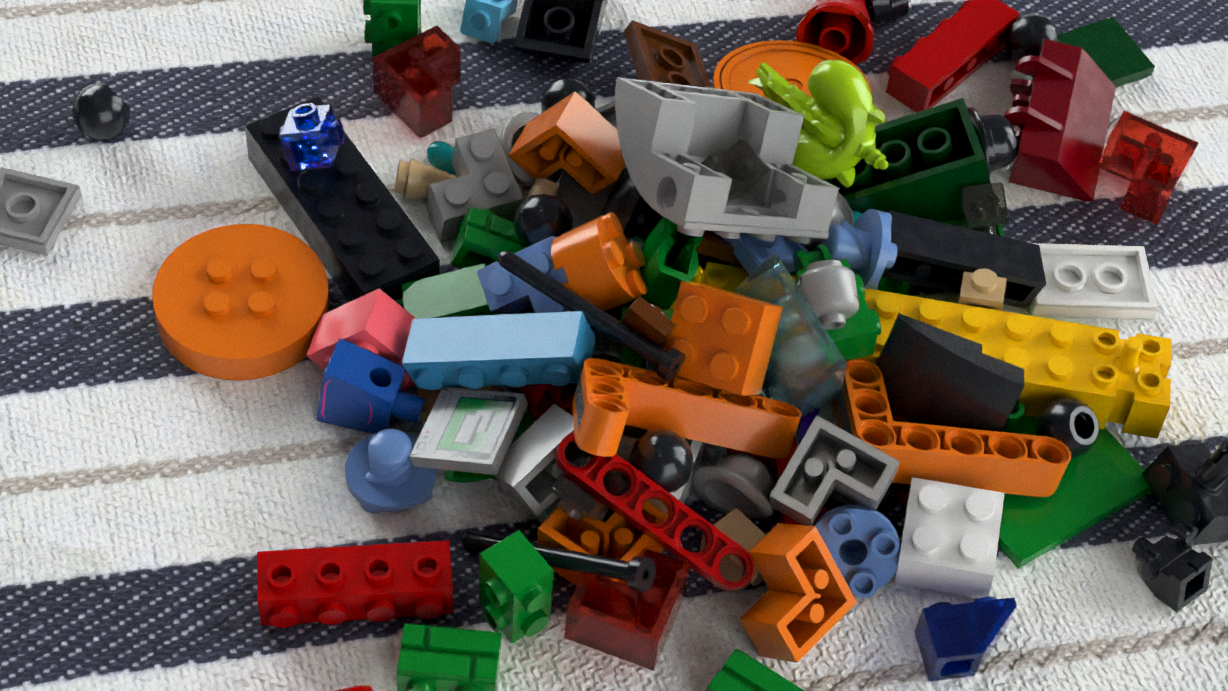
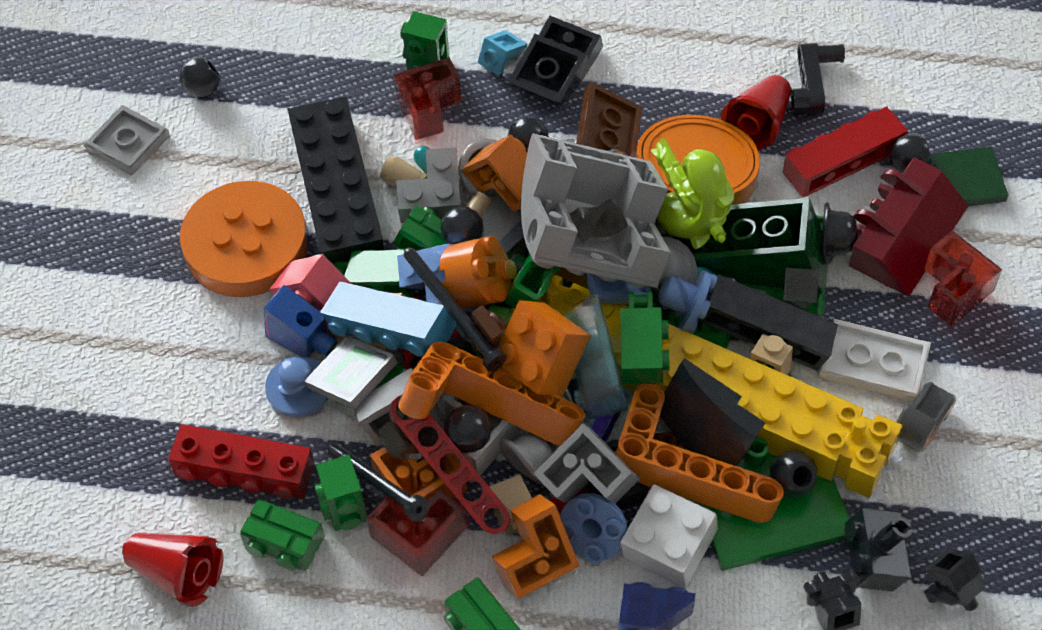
camera: 25 degrees right, 5 degrees up
(311, 137) = (319, 130): clear blue brick -> none
(830, 292) = (629, 332): light grey head -> none
(1181, 319) = (925, 416): none -> dark grey animal

